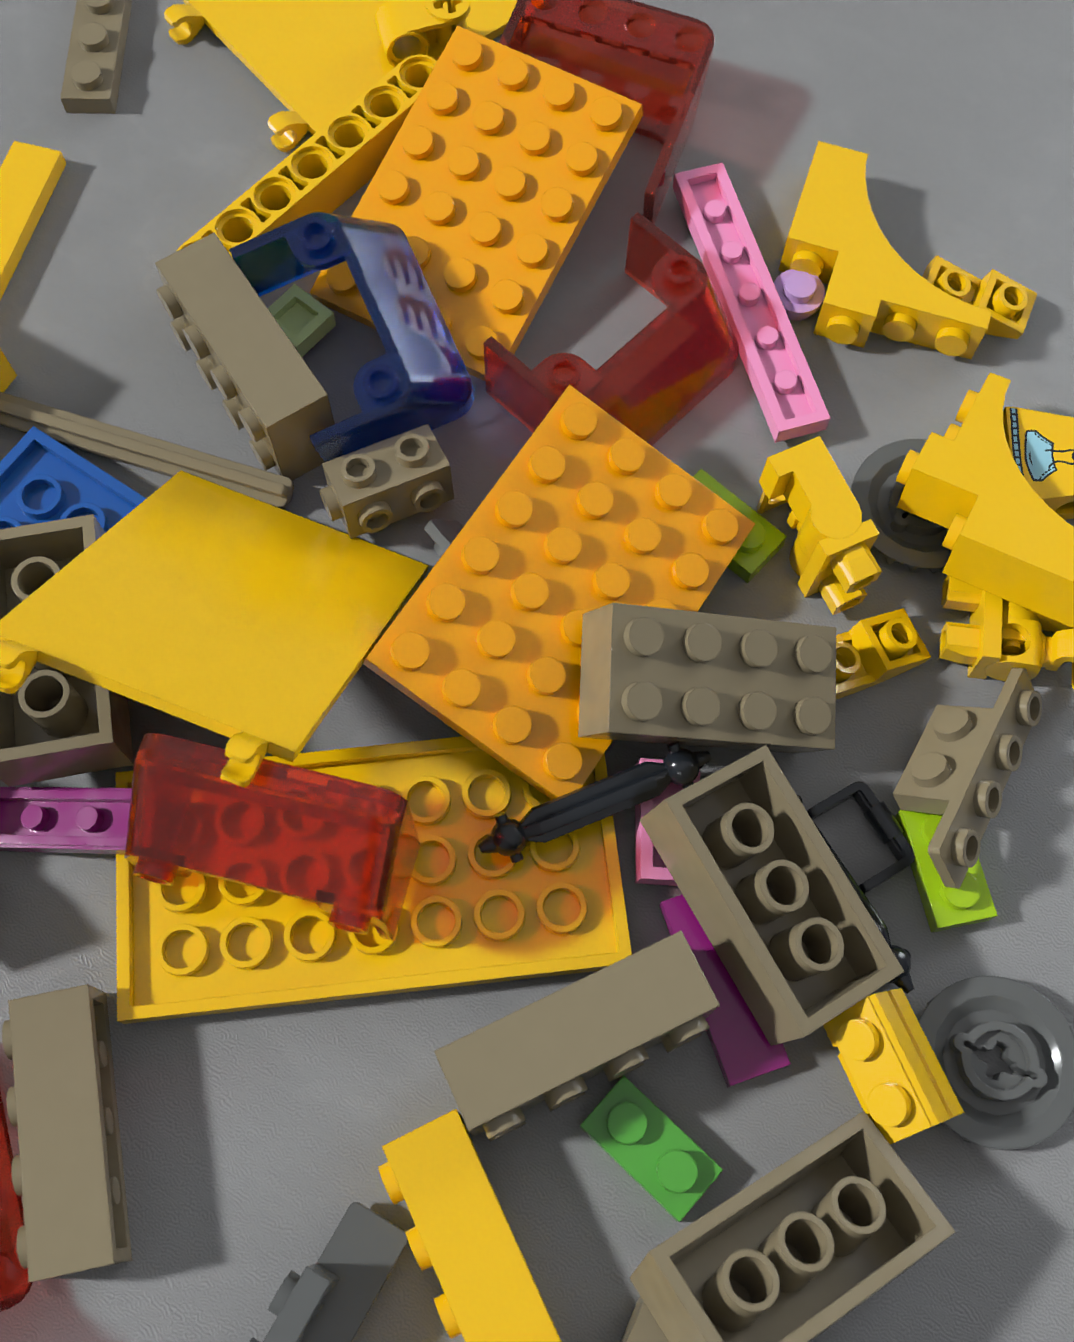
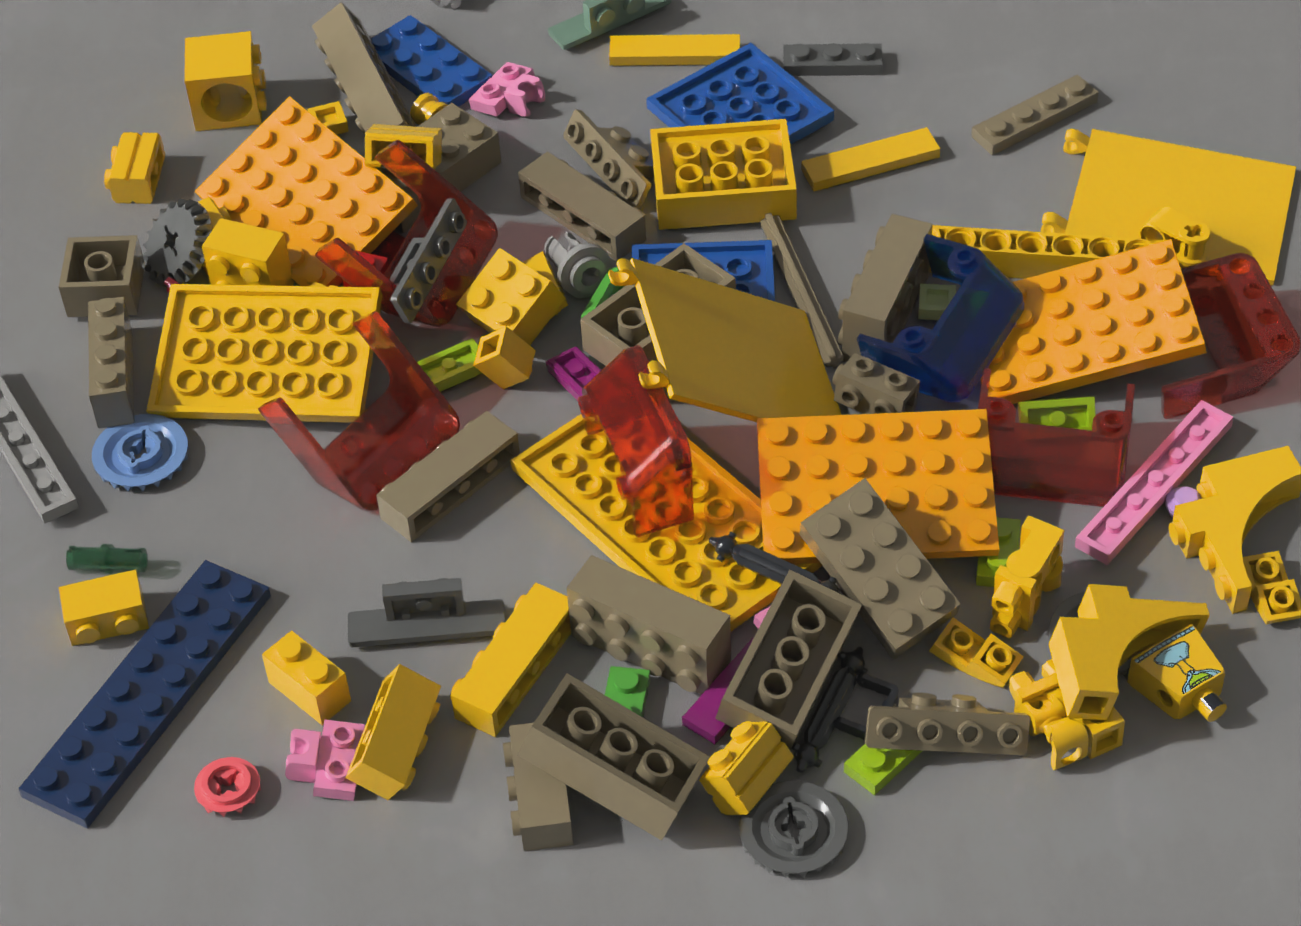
camera: 60 degrees right, 20 degrees down
(584, 318) = (1064, 412): none -> lime plate

